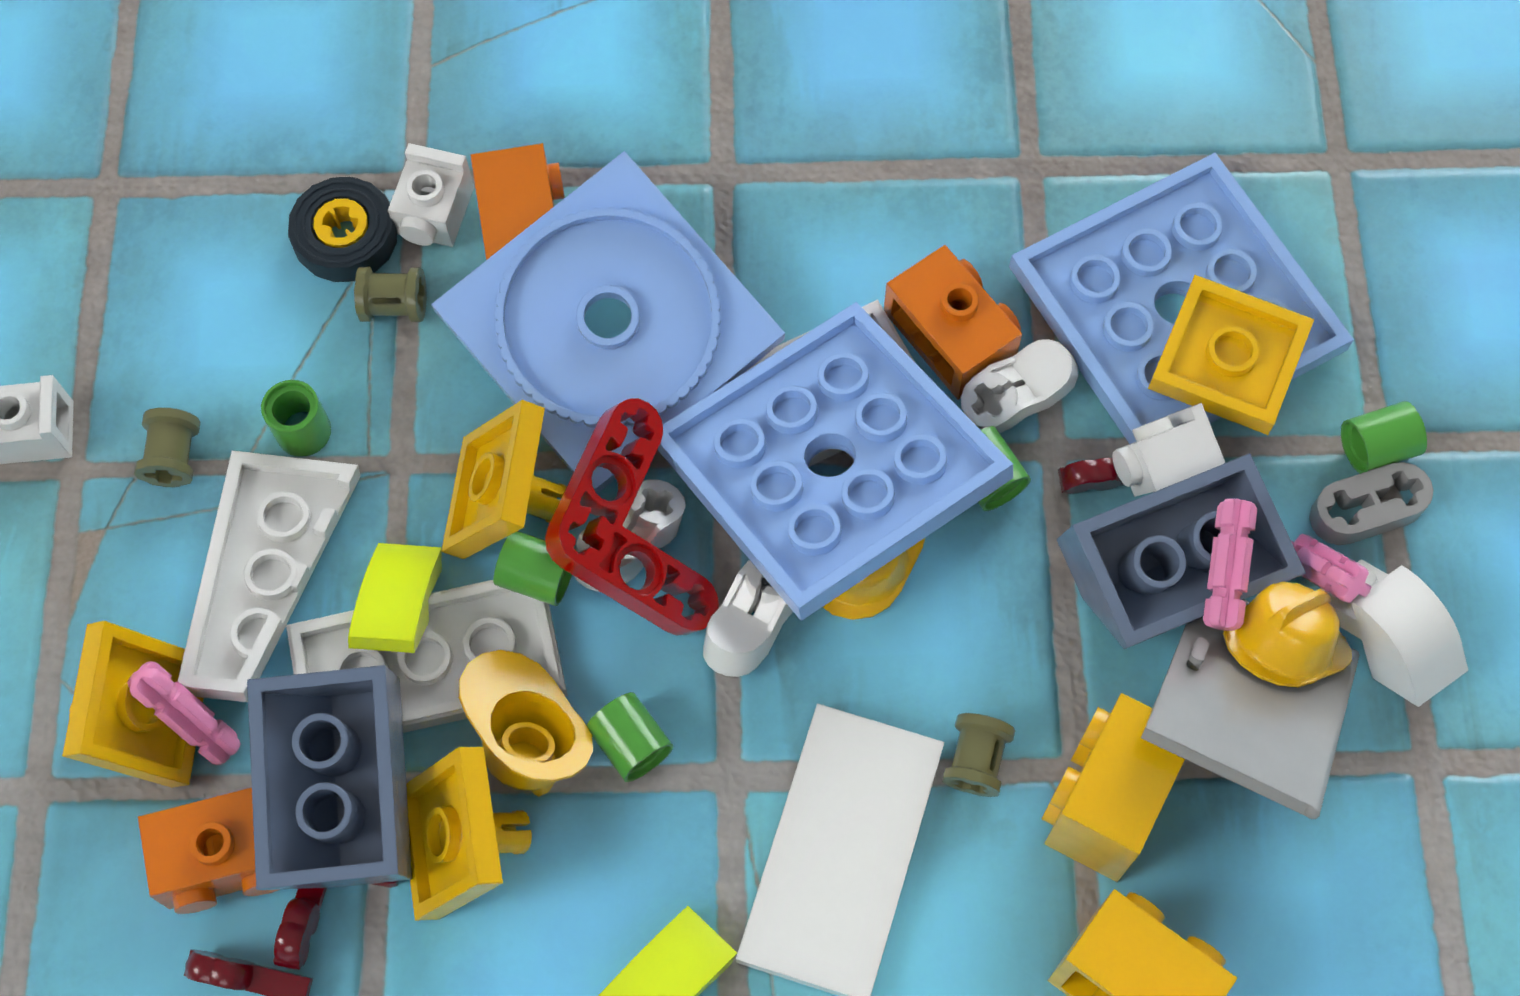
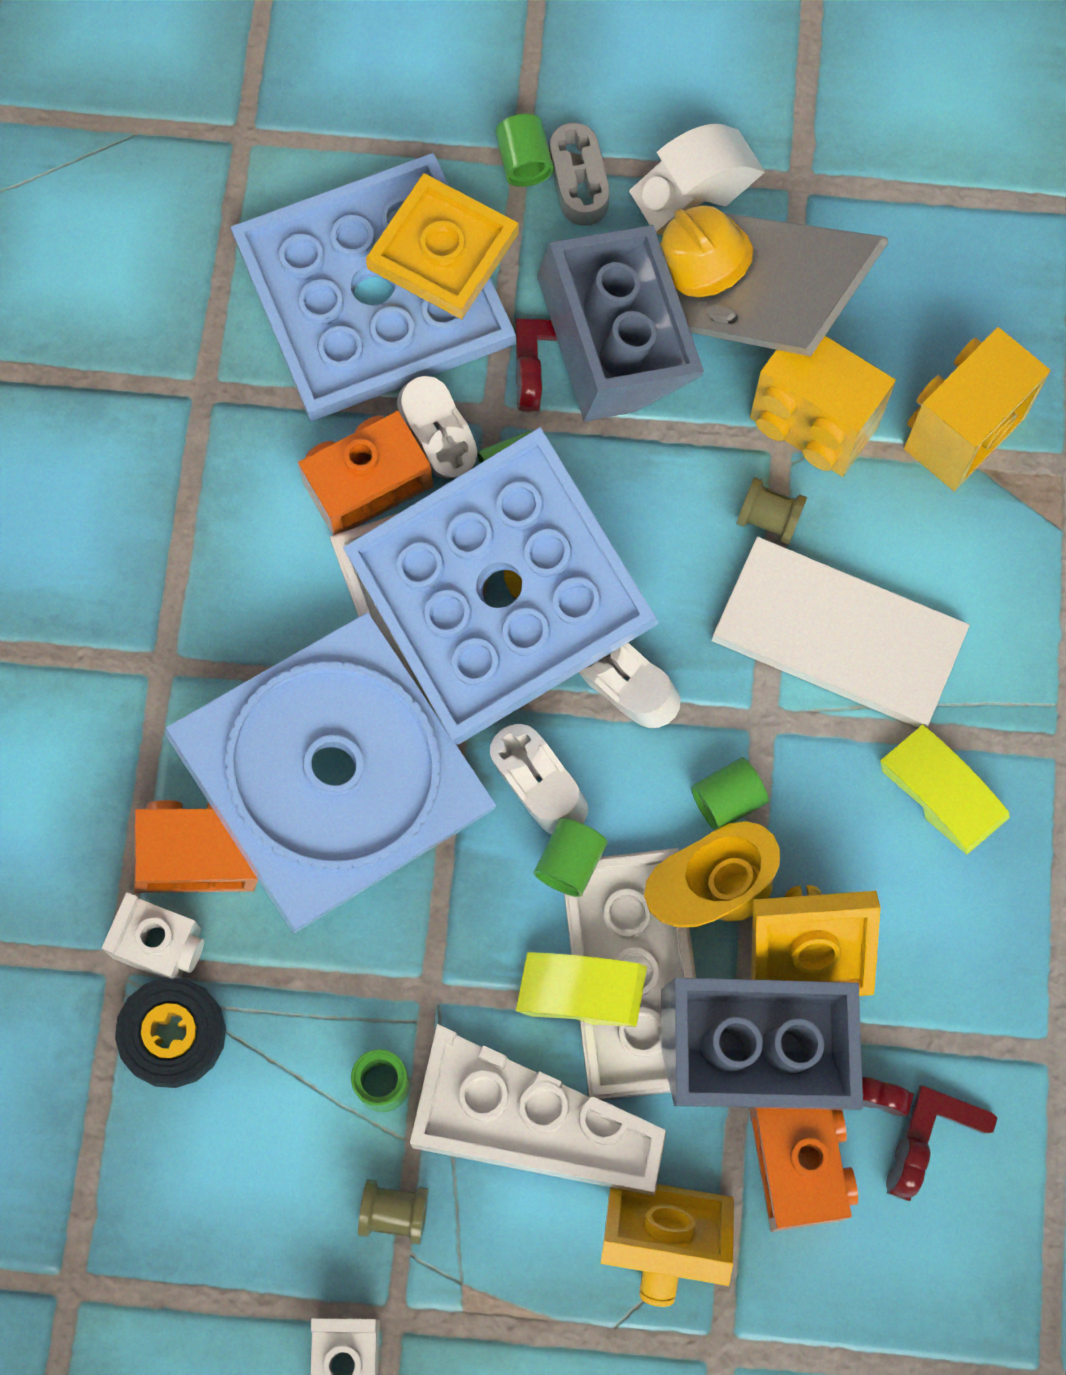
camera: 85 degrees left, 5 degrees up
(183, 713) = (678, 1187): bright pink axle -> none
(390, 294) = (256, 984): olive bush -> none
(497, 482) = (481, 886): yellow tile -> none
(611, 541) = (554, 784): red beam -> none
(1168, 451) = (529, 310): white brick -> none
(1230, 564) = (647, 275): bright pink axle -> none
(1331, 569) = (650, 205): bright pink axle -> none

